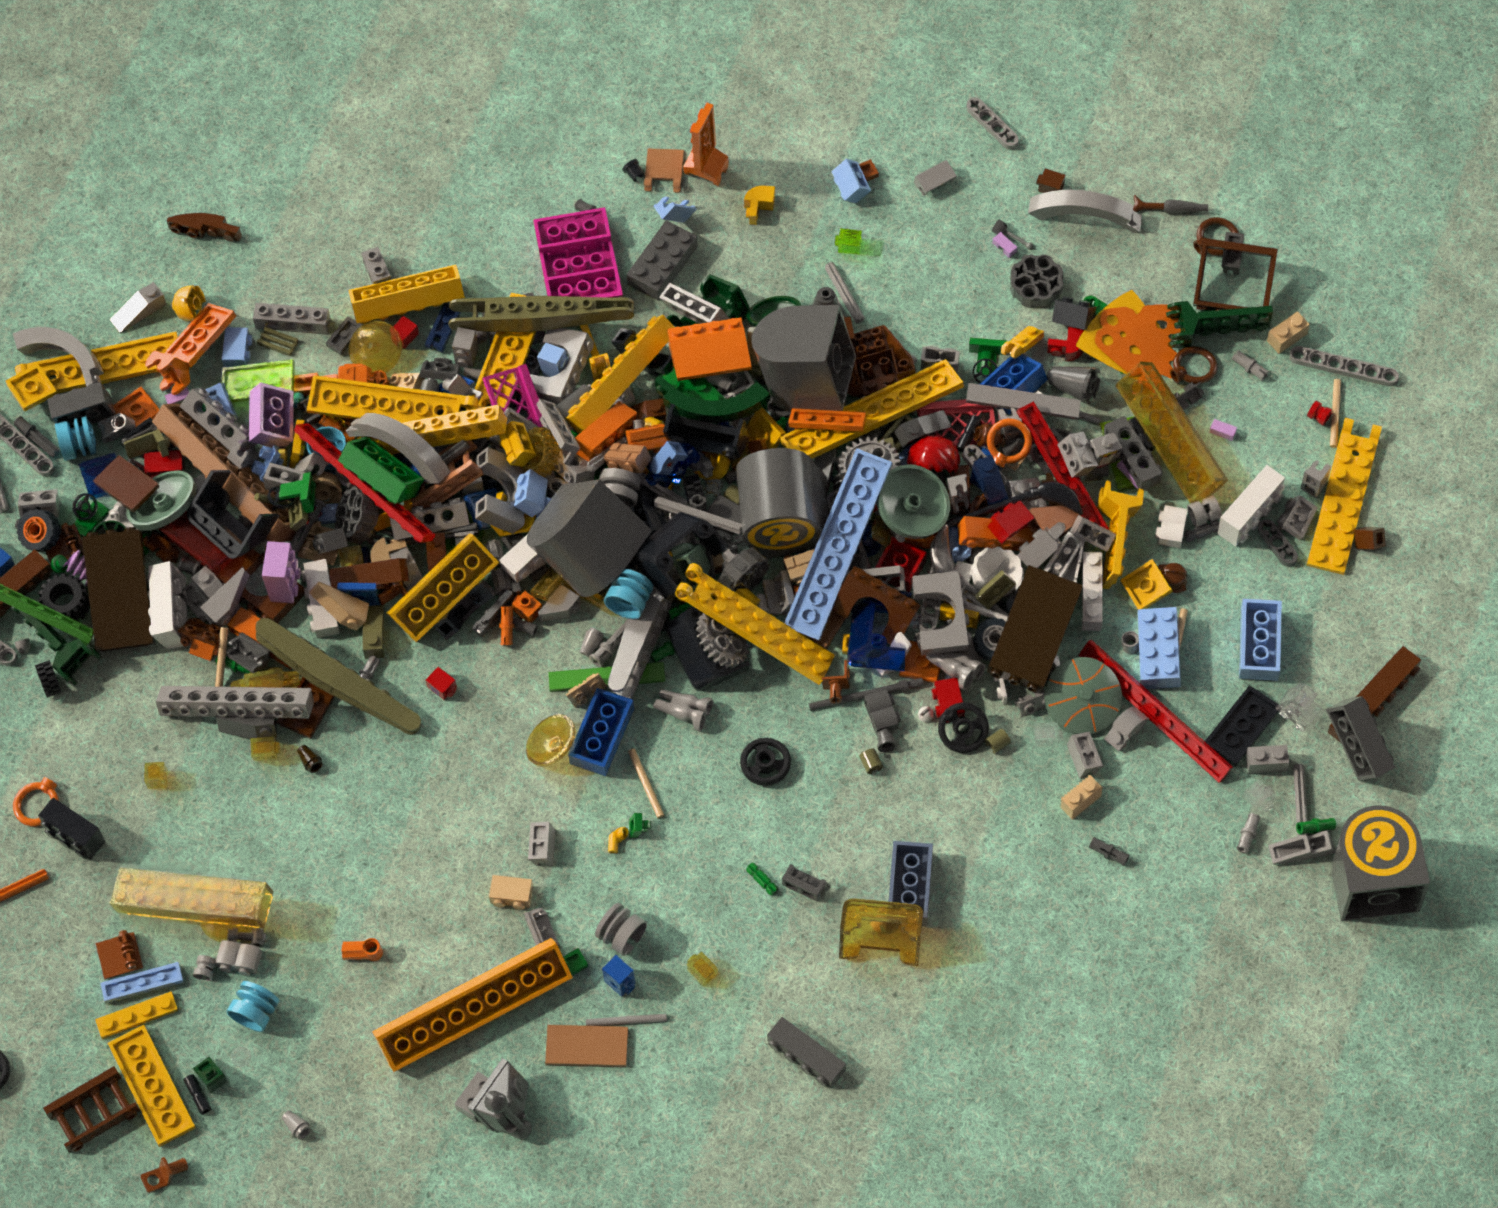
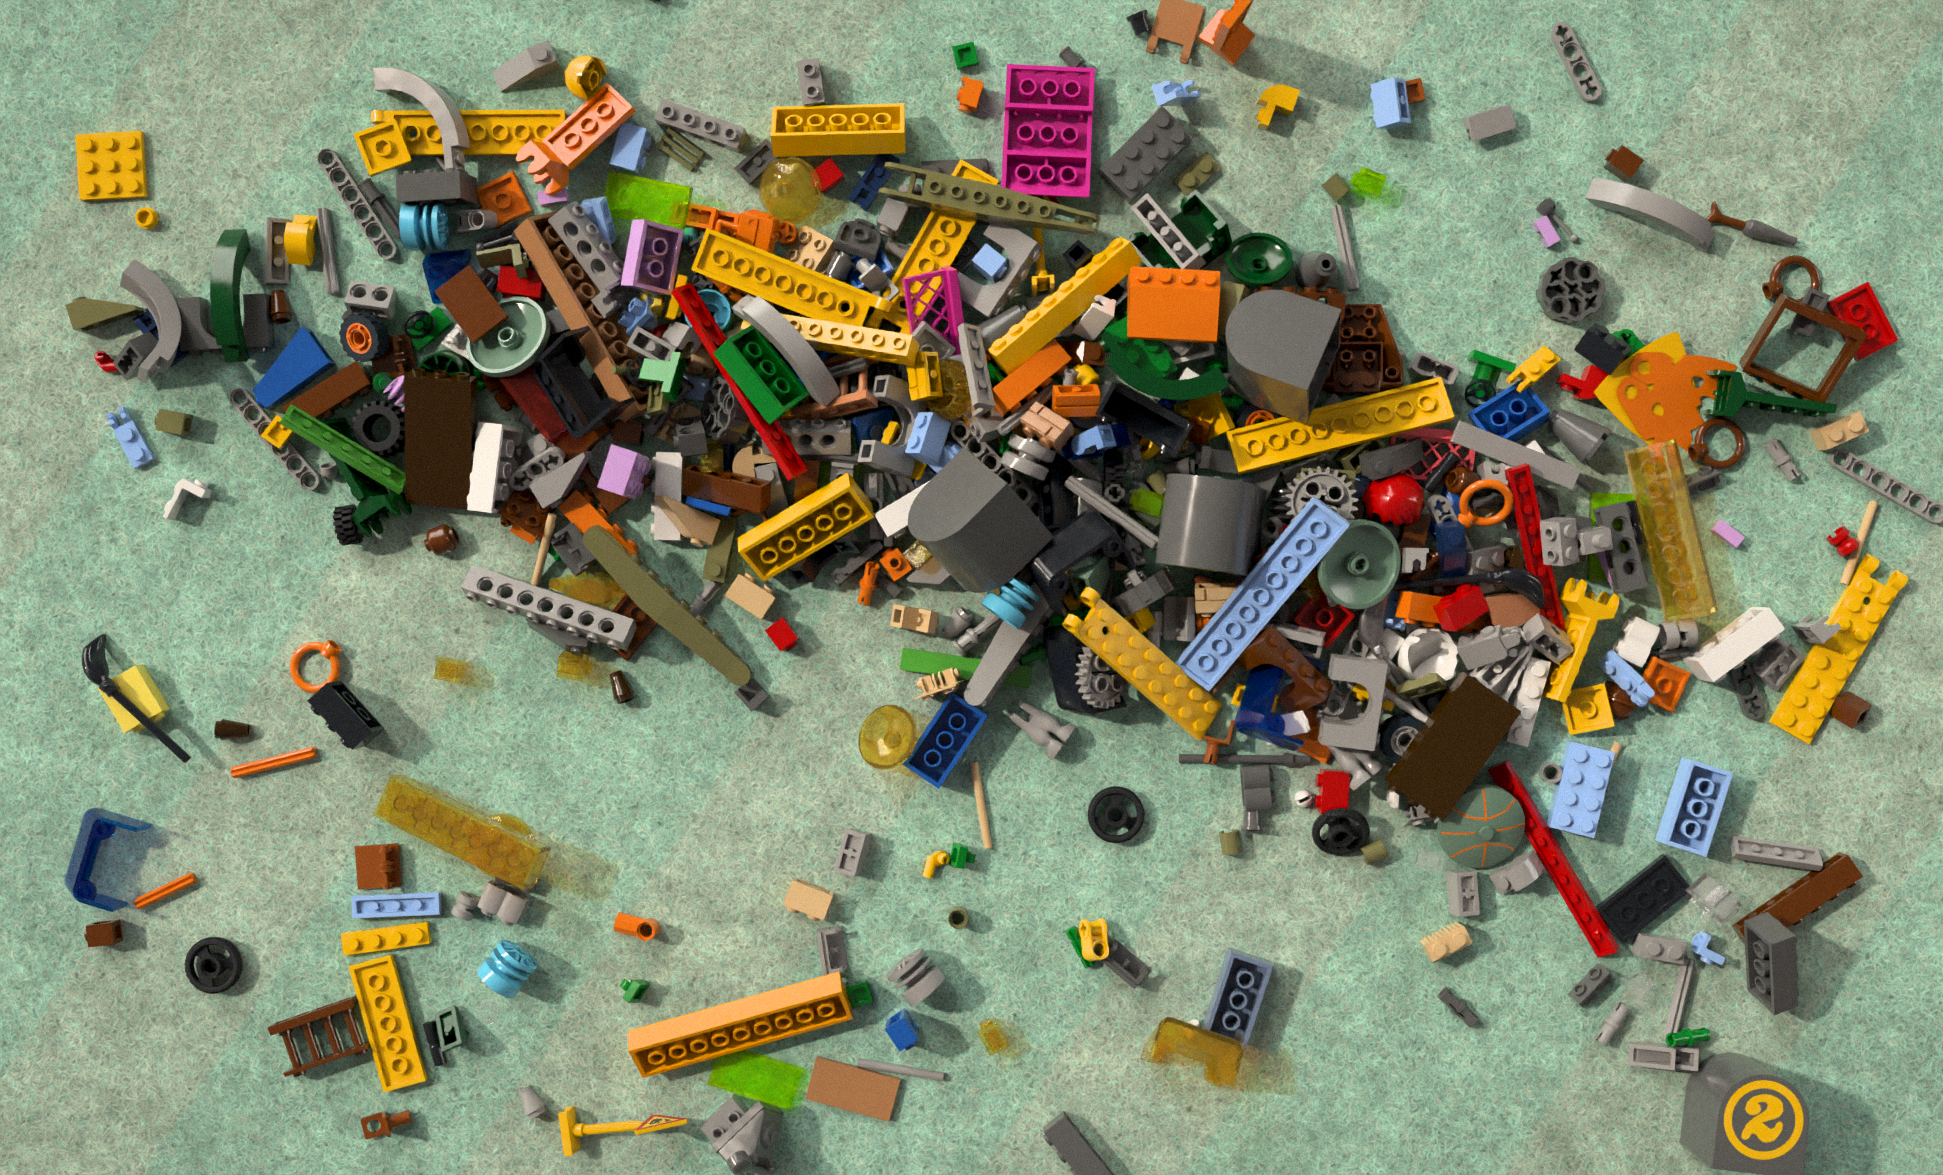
camera: 10 degrees right, 25 degrees up
(130, 676) = (441, 540): none -> reddish brown head
(196, 595) = (541, 460): none -> light grey beam
(371, 1004) = (634, 990): none -> green tile
(408, 659) = (751, 595): none -> tan brick
(408, 1107) = (572, 1131): none -> yellow piece
(425, 739) = (752, 694): none -> dark grey panel
(485, 1052) = (757, 1077): none -> clear neon green plate
(498, 223) = (965, 55): none -> green plate
(508, 249) = (970, 95): none -> orange brick
(552, 645) = (914, 618): none -> tan brick
(646, 383) = (1095, 318): none -> white hinge
(647, 869) = (958, 925): none -> olive beam
(709, 265) = (1196, 174): none -> olive plate
(727, 505) = (1146, 502): none -> clear neon green brick
(771, 865) = (1094, 937): none -> yellow piece
(824, 250) = (1336, 187): none -> olive beam
(827, 419) = (1287, 428): orange plate -> none
(1169, 551) = (1626, 678): none -> light blue hinge
(1204, 553) = (1666, 681): none -> orange tile
(1215, 812) = (1596, 978): none -> dark grey hinge
(1290, 255) = (1863, 310): none -> red plate
(1310, 755) = (1699, 945): none -> light blue bracket
(1349, 662) = (1776, 853): none -> light grey plate

